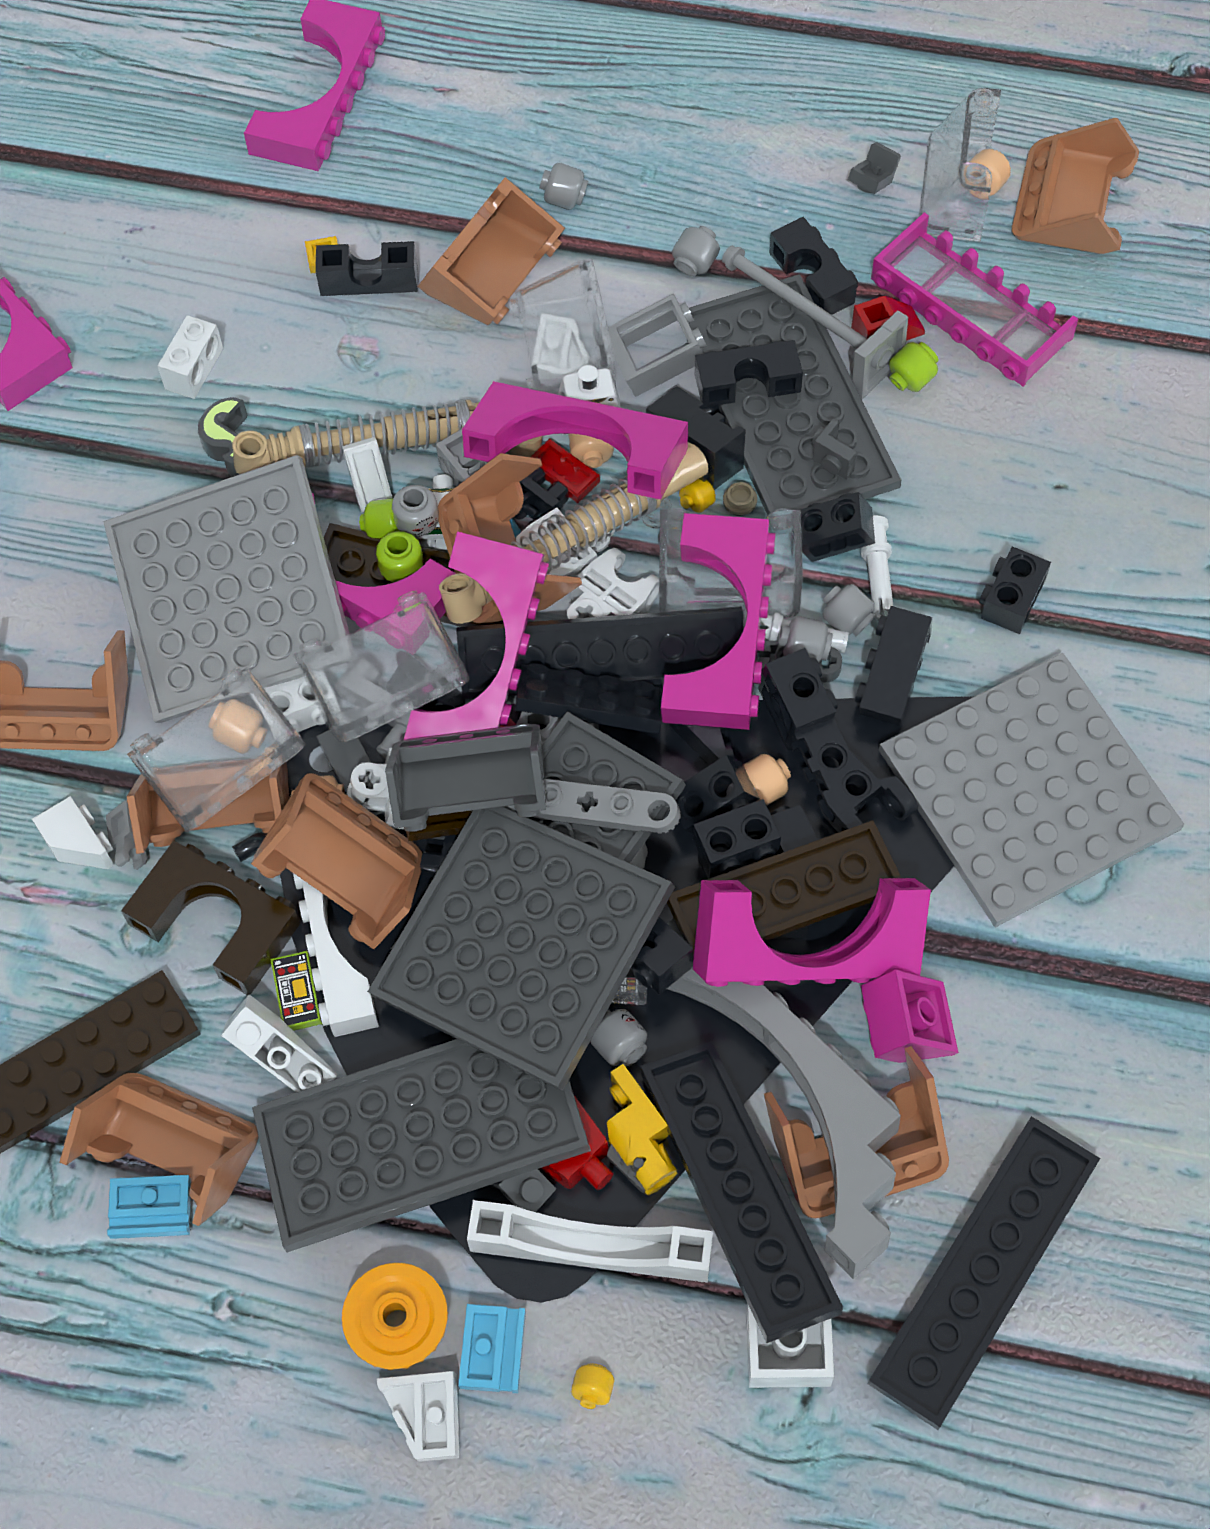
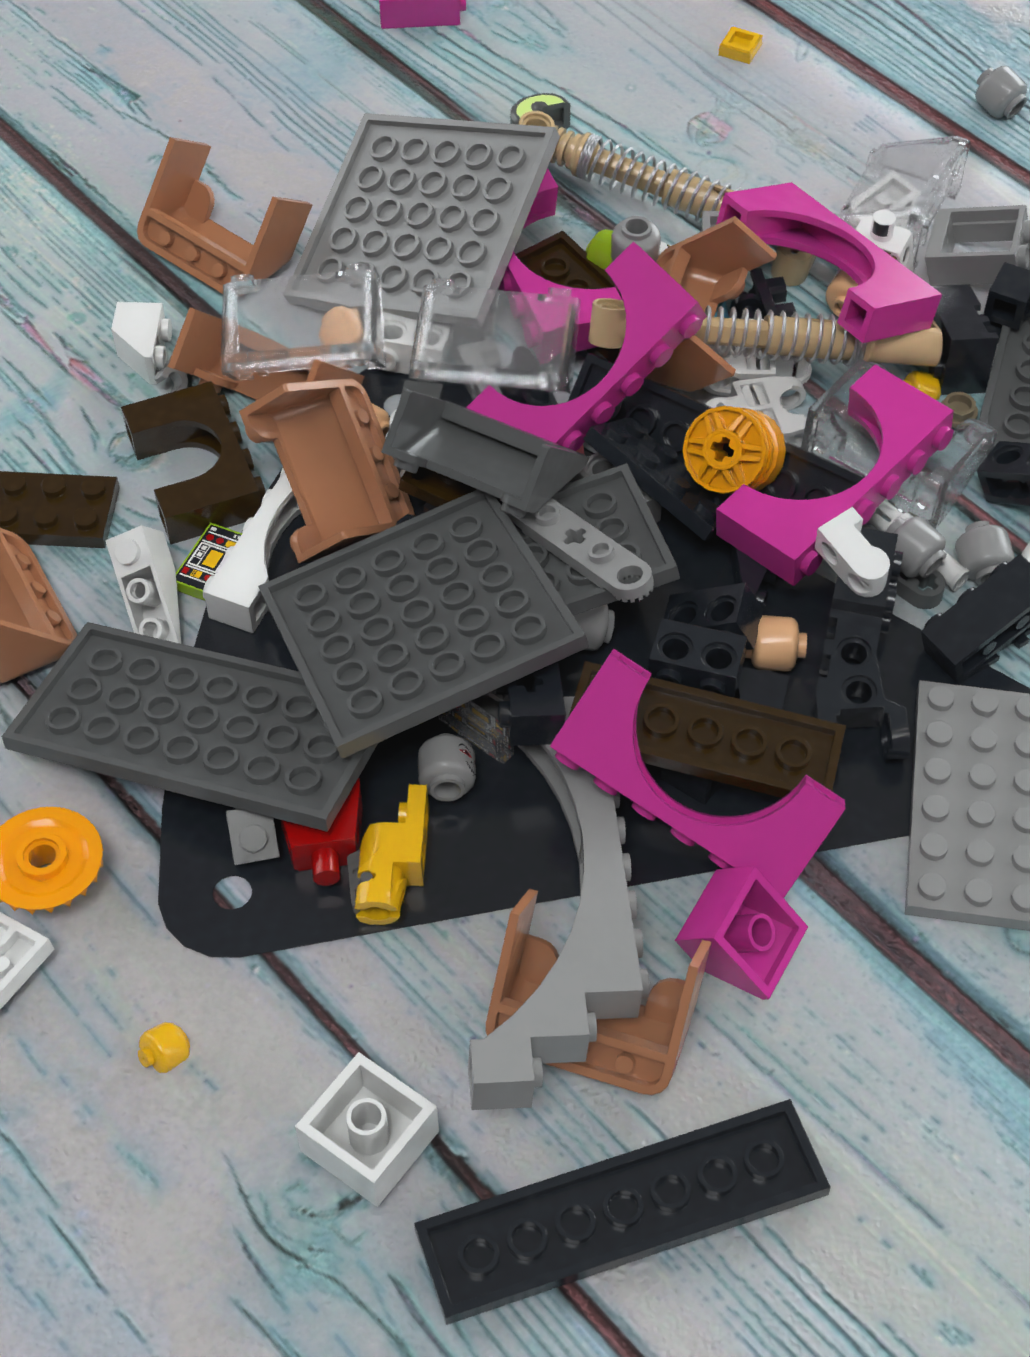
camera: 35 degrees right, 10 degrees down
(190, 357) = (557, 56): white brick -> none
(344, 274) = (740, 60): black arch -> none
(367, 471) = (626, 197): white tile -> none
(399, 555) = (588, 270): lime head -> none
(492, 1348) = (102, 949): medium azure plate -> none
(493, 255) = (887, 107): nougat windscreen -> none
(566, 469) = (808, 294): red plate -> none
(630, 628) = (756, 446): none -> light orange wheel
(640, 1250) = (311, 961): white arch -> none
(741, 1193) = (432, 967): black plate -> none
(792, 688) = (851, 555): none -> white leg

